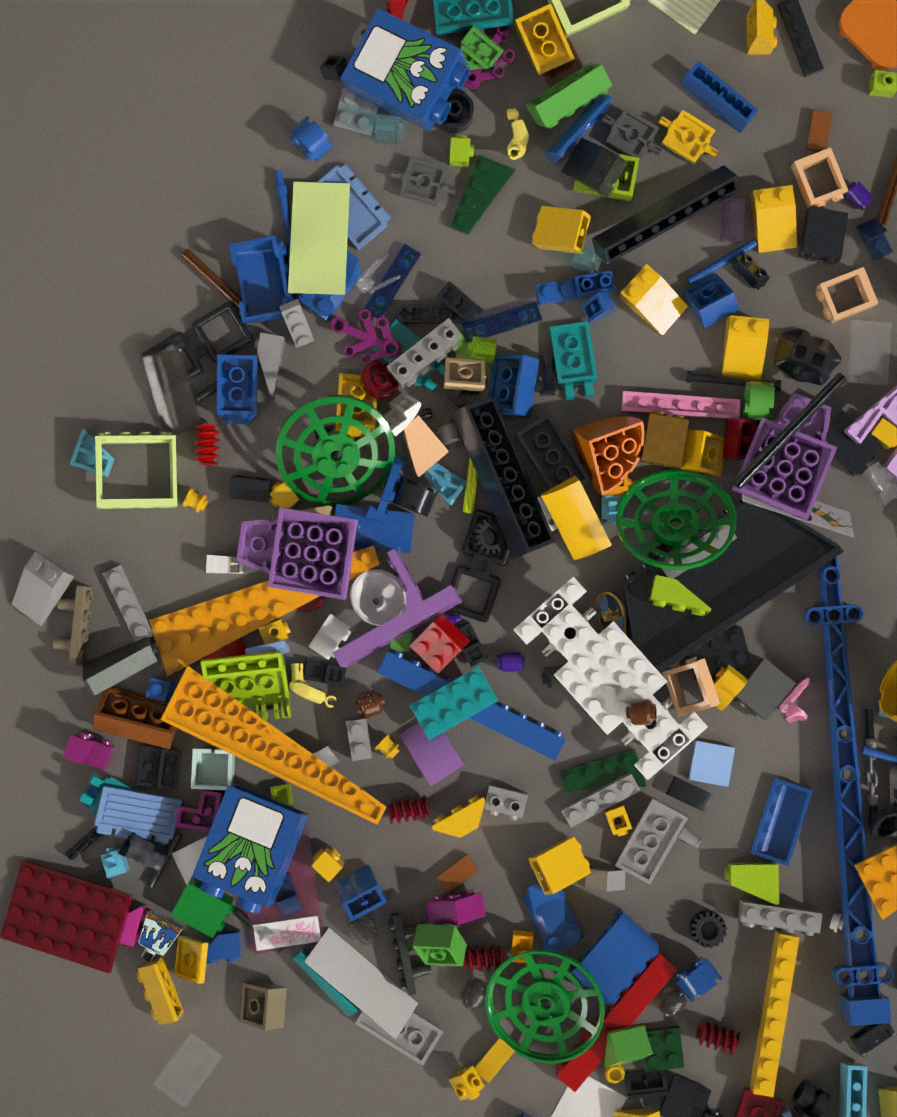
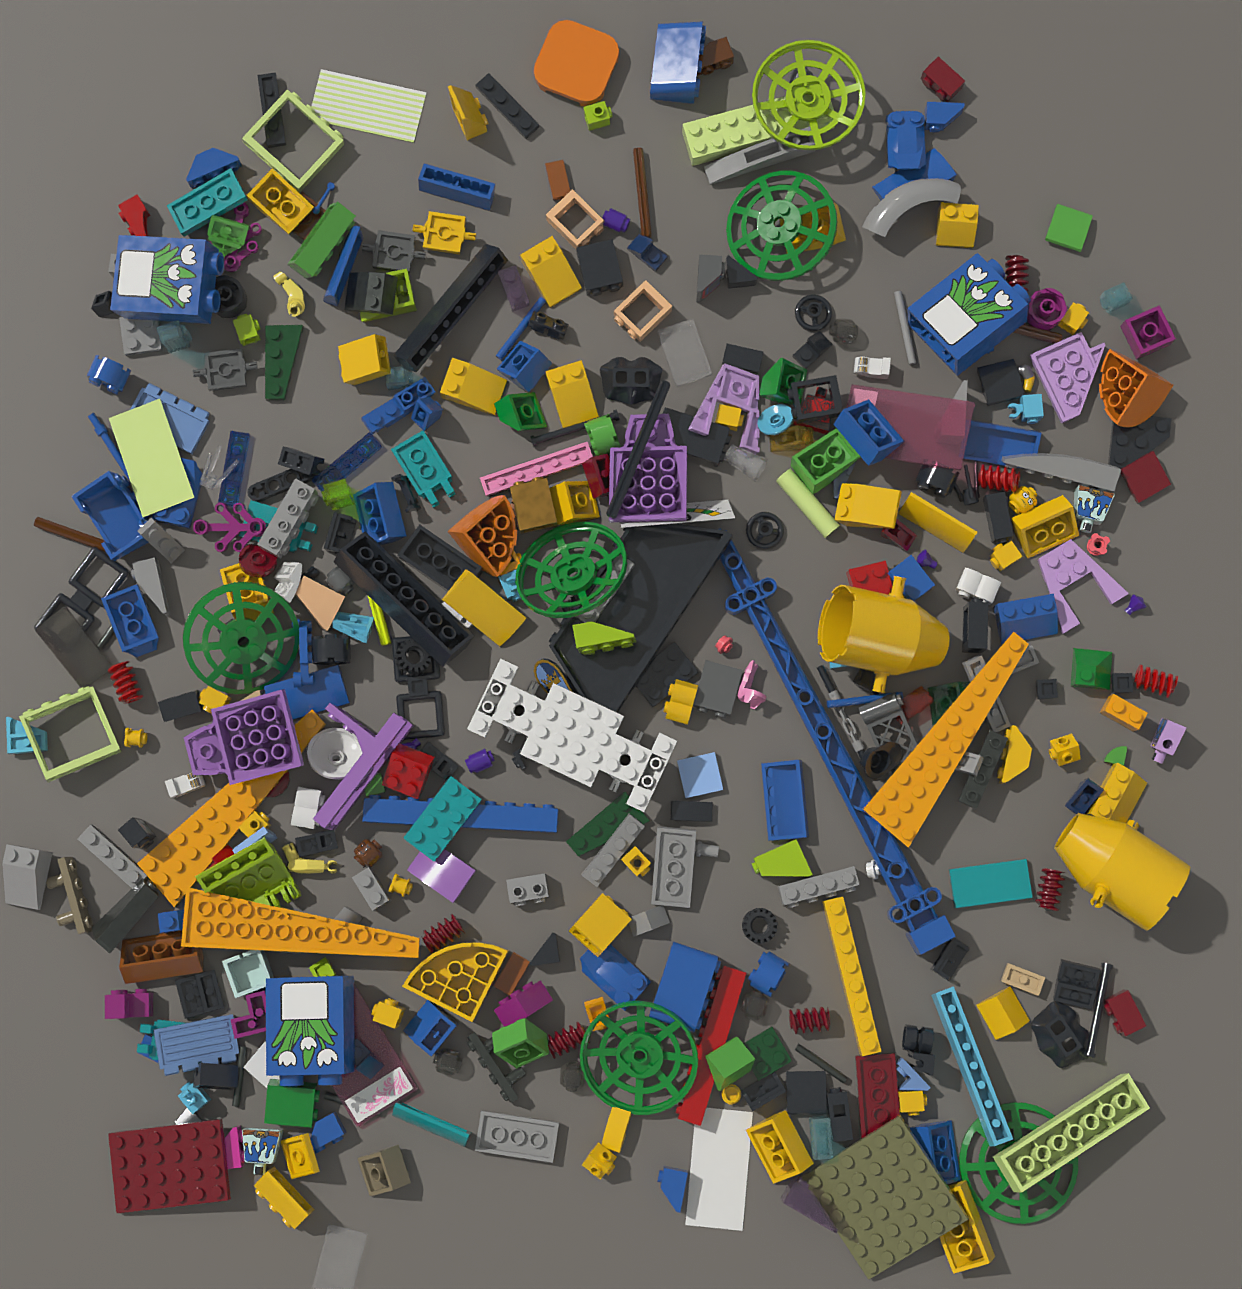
camera: 15 degrees left, 5 degrees down
(82, 844) = (158, 1094): black axle -> none
(161, 593) = (137, 833): none -> black brick
(361, 983) = (464, 1109): white sticker -> none
(406, 856) = (458, 976): none -> yellow brick
(462, 819) = (495, 921): yellow slope -> none
(464, 374) = (330, 522): tan slope -> none
(499, 869) = (548, 952): none -> black slope
(597, 44) = (330, 187): none -> blue hinge
(641, 712) = (610, 752): reddish brown head -> none
(688, 343) = (520, 411): none -> green slope
(704, 680) = (659, 702): light nougat window -> none
(710, 1081) = (821, 1063): none -> pearl dark grey bar
(788, 650) = (724, 644): none -> coral plate
(872, 541) = (759, 517): none -> black piece

